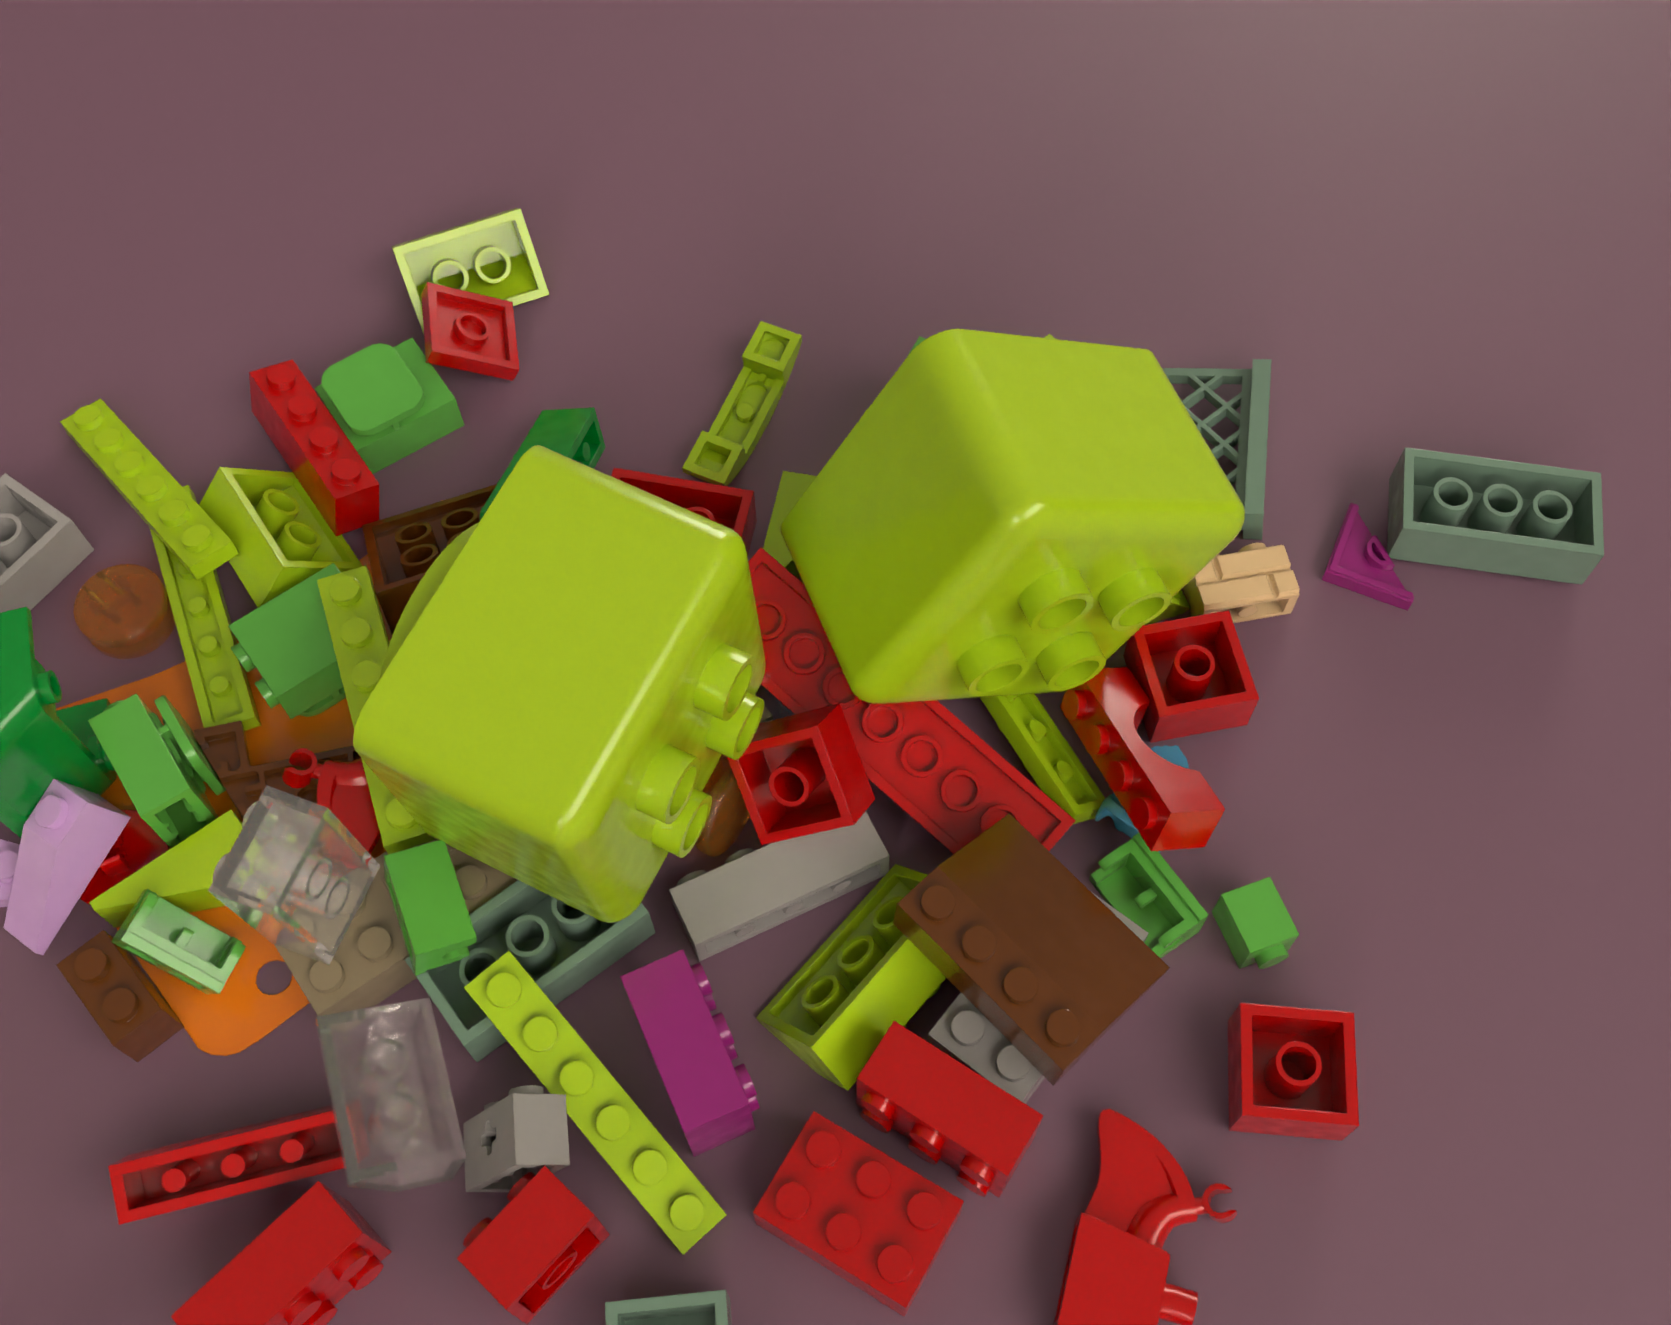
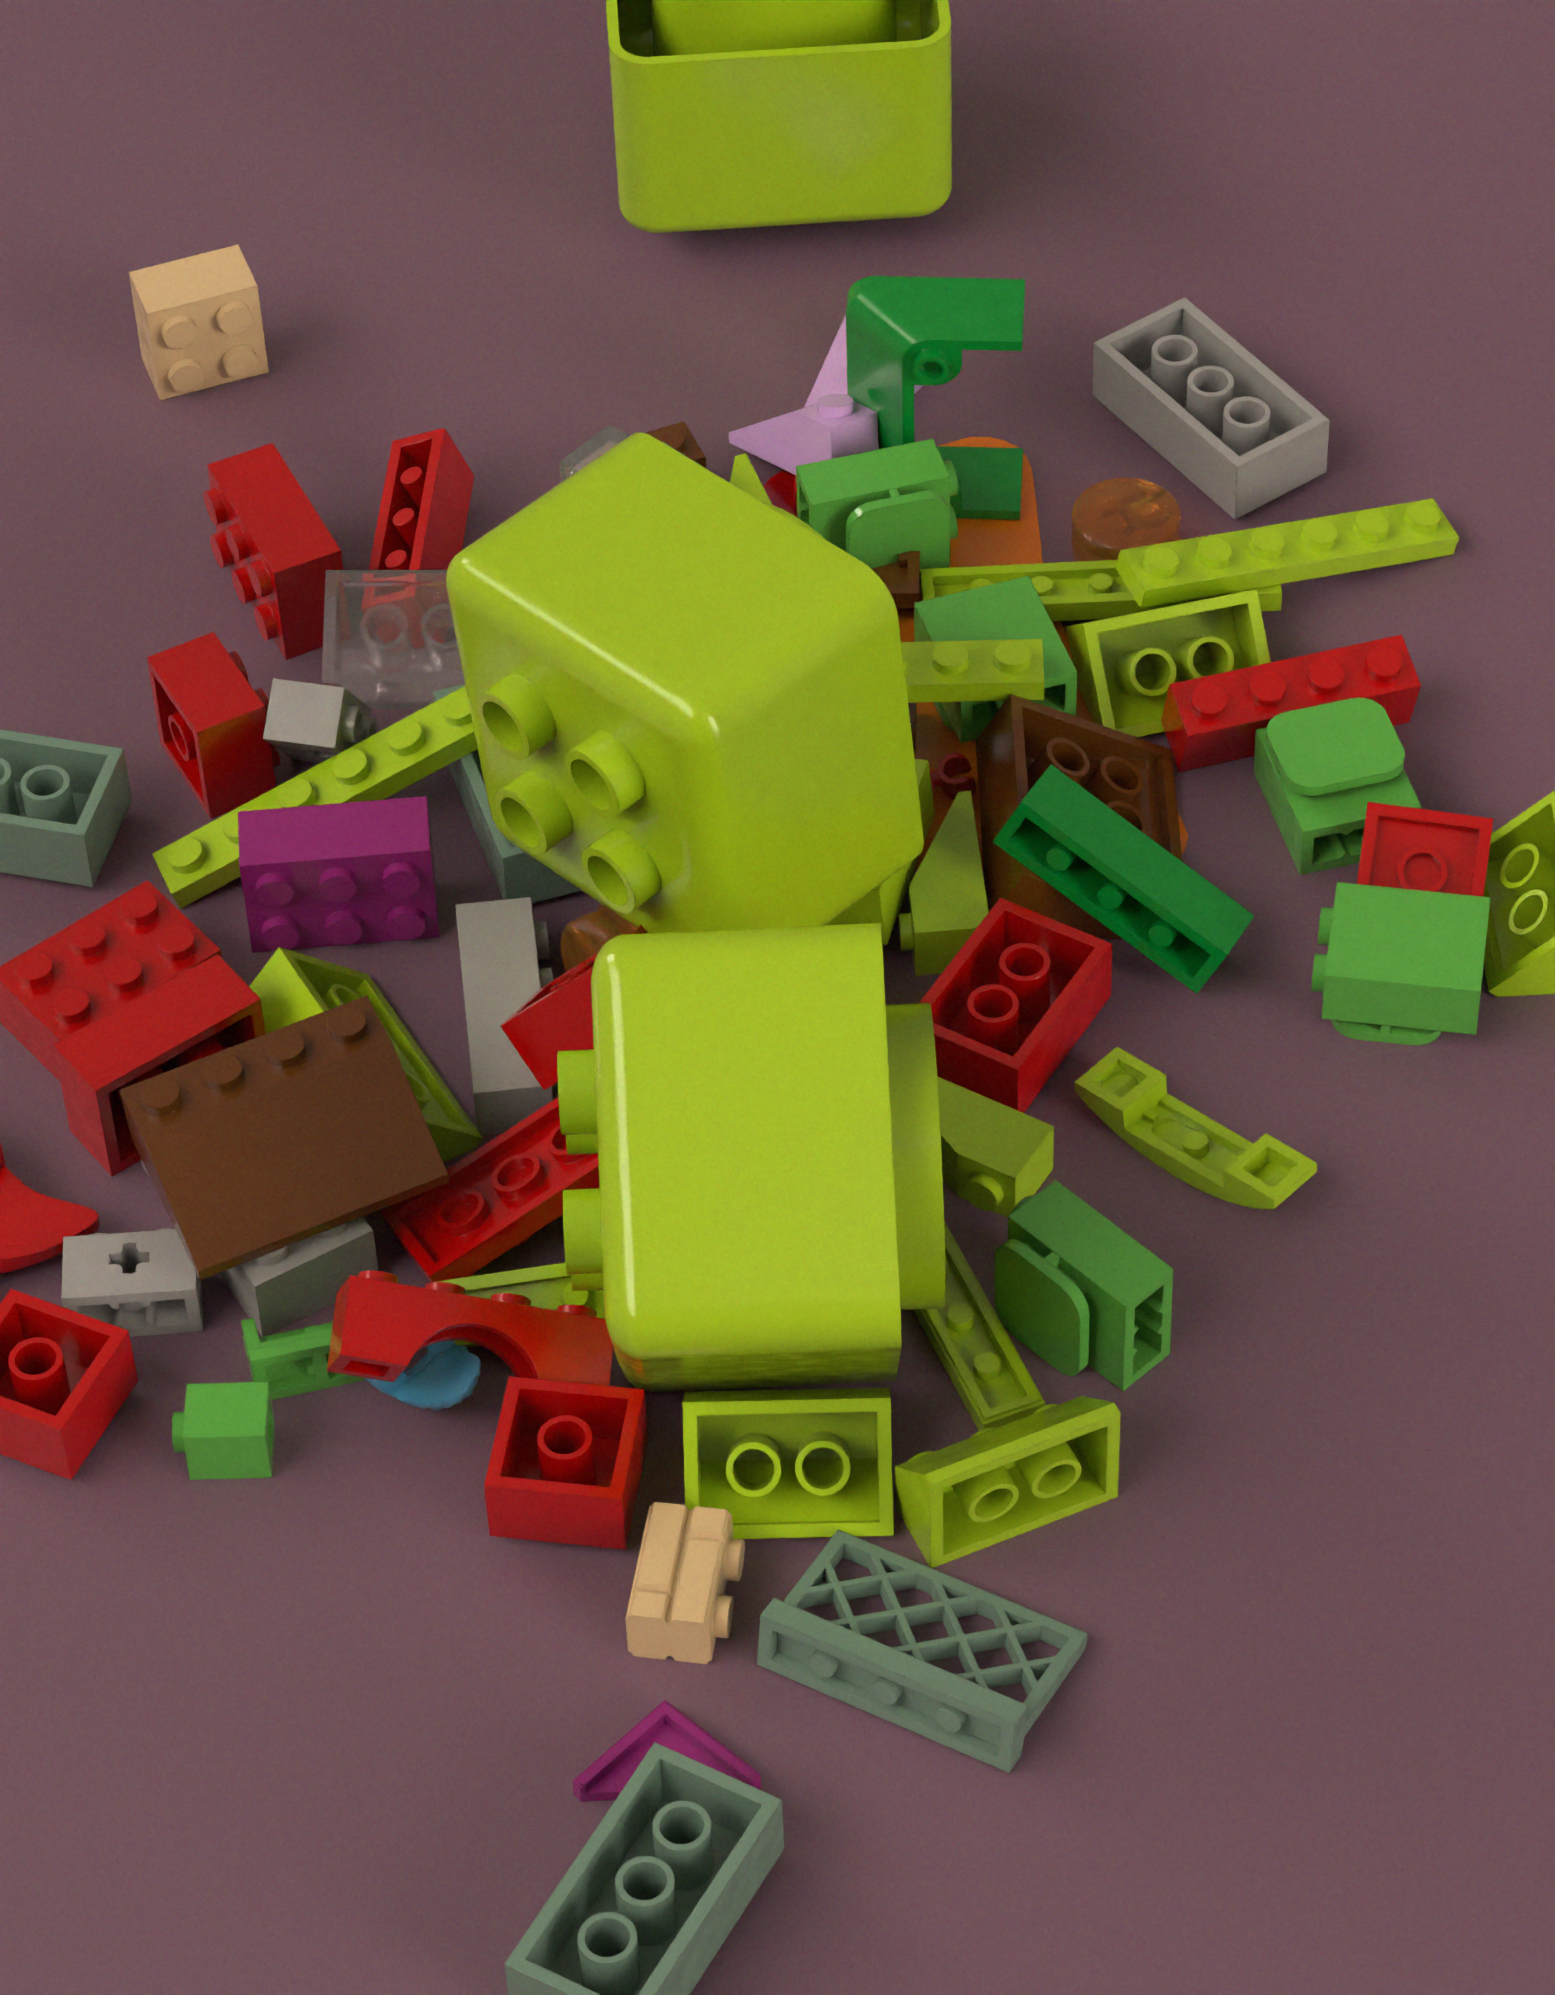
camera: 110 degrees right, 15 degrees down
(557, 320) = (1401, 963): none -> bright green brick
(1178, 1075) = (133, 1281): none -> light grey brick

